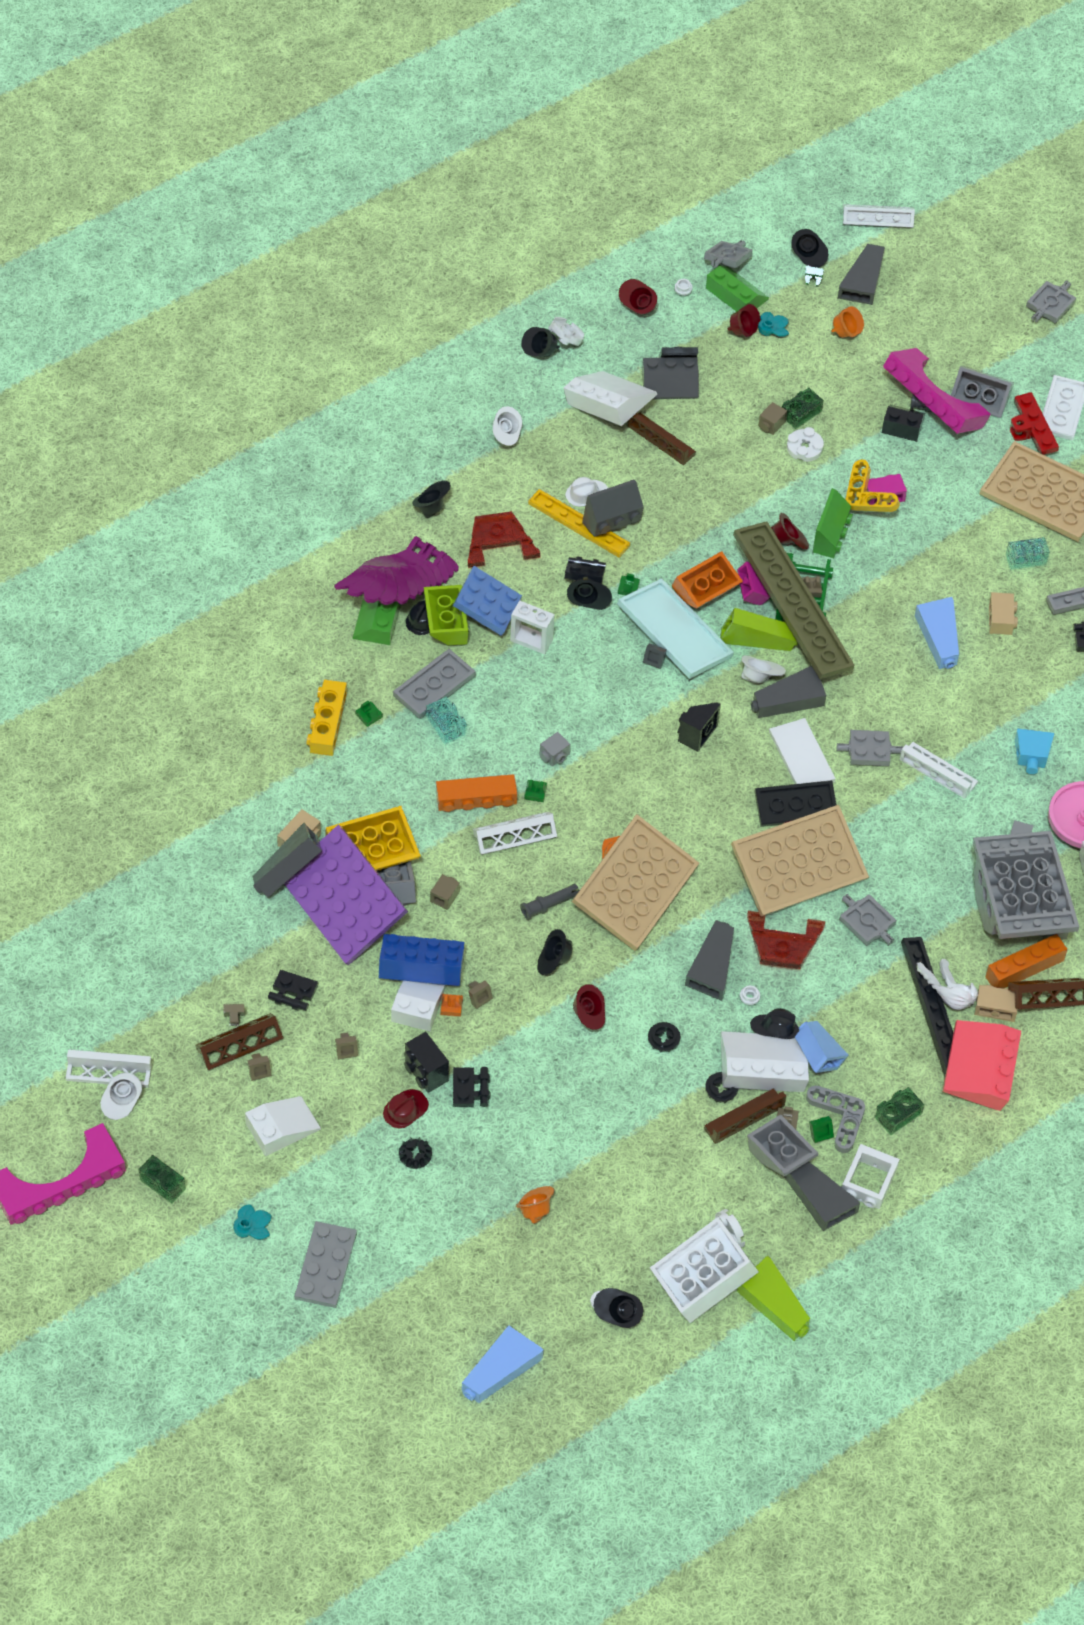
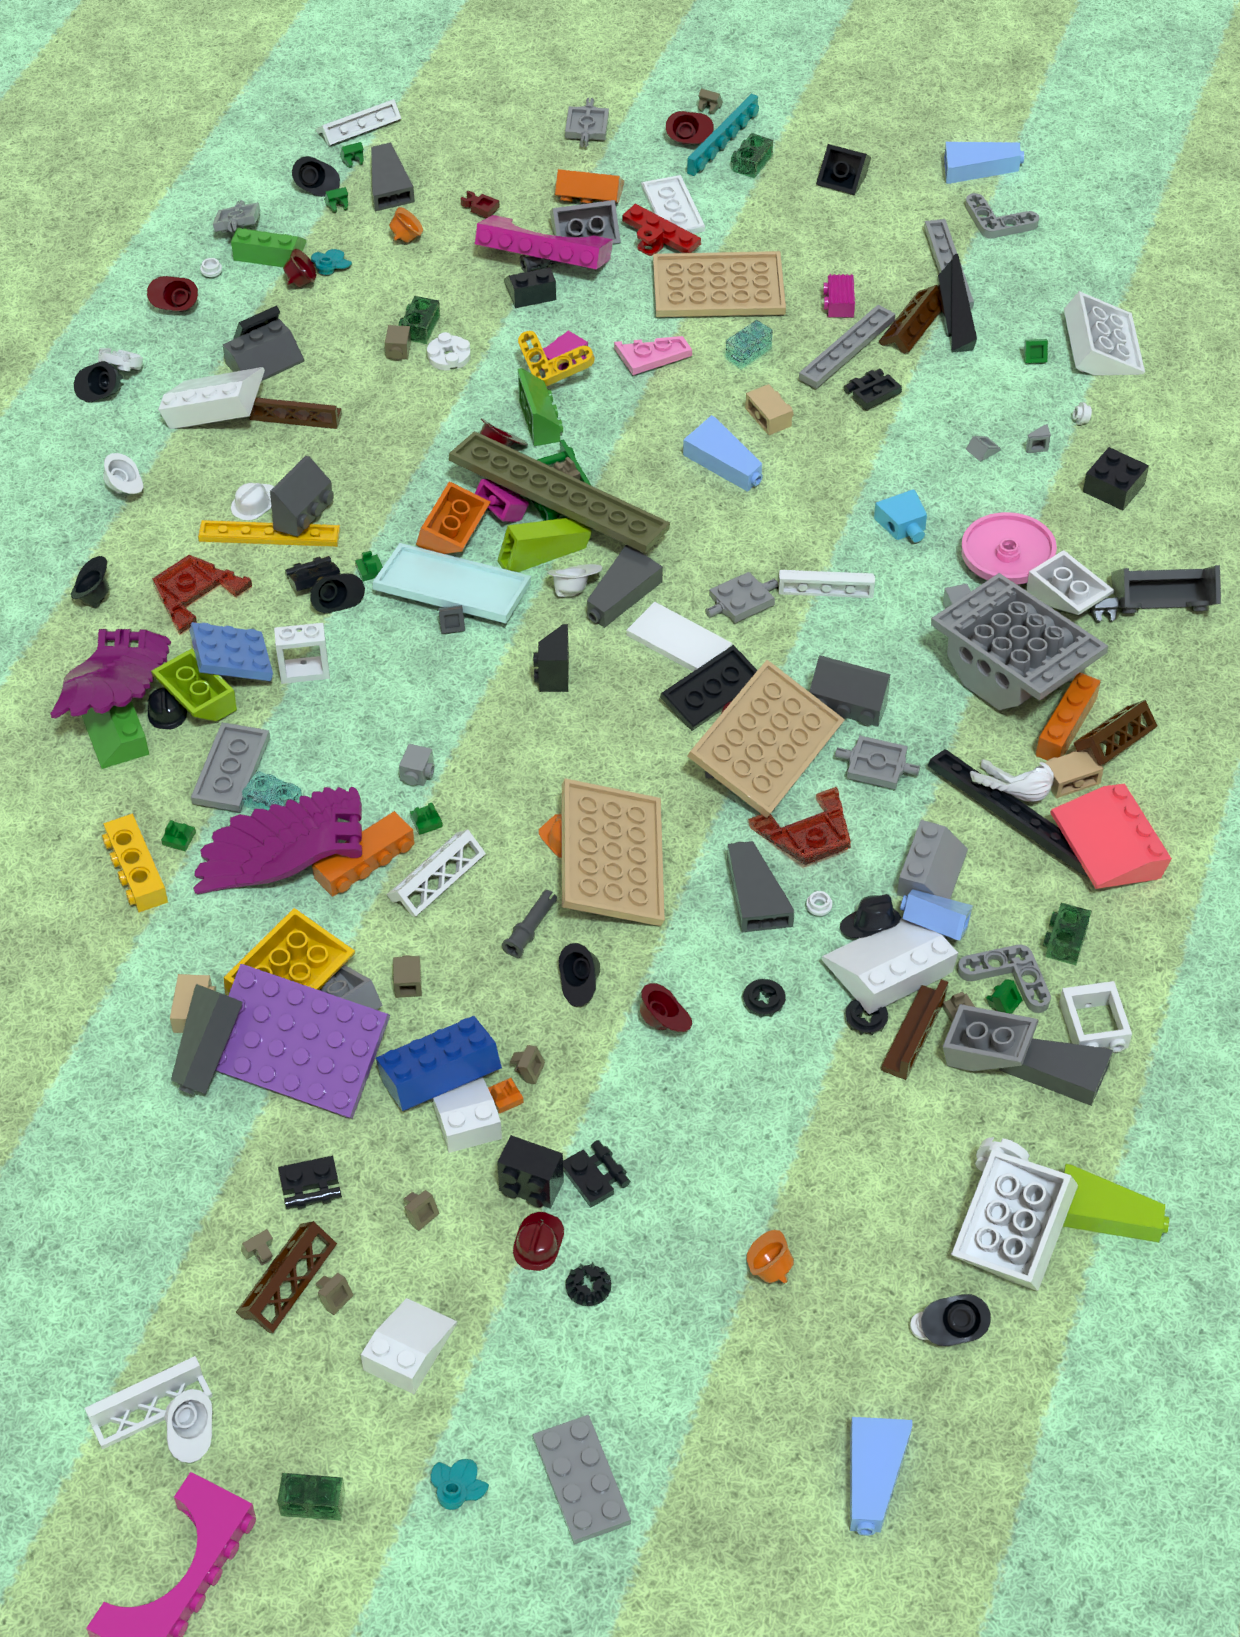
camera: 30 degrees left, 5 degrees down
(428, 754) = (281, 840): none -> magenta animal
(846, 1010) = (932, 861): none -> light grey slope
(852, 239) = (350, 152): none -> green tile
(885, 859) = (851, 690): none -> dark grey slope
(918, 334) = (480, 205): none -> dark red plate
(949, 523) = (650, 355): none -> bright pink wing
(1009, 359) = (588, 186): none -> orange slope

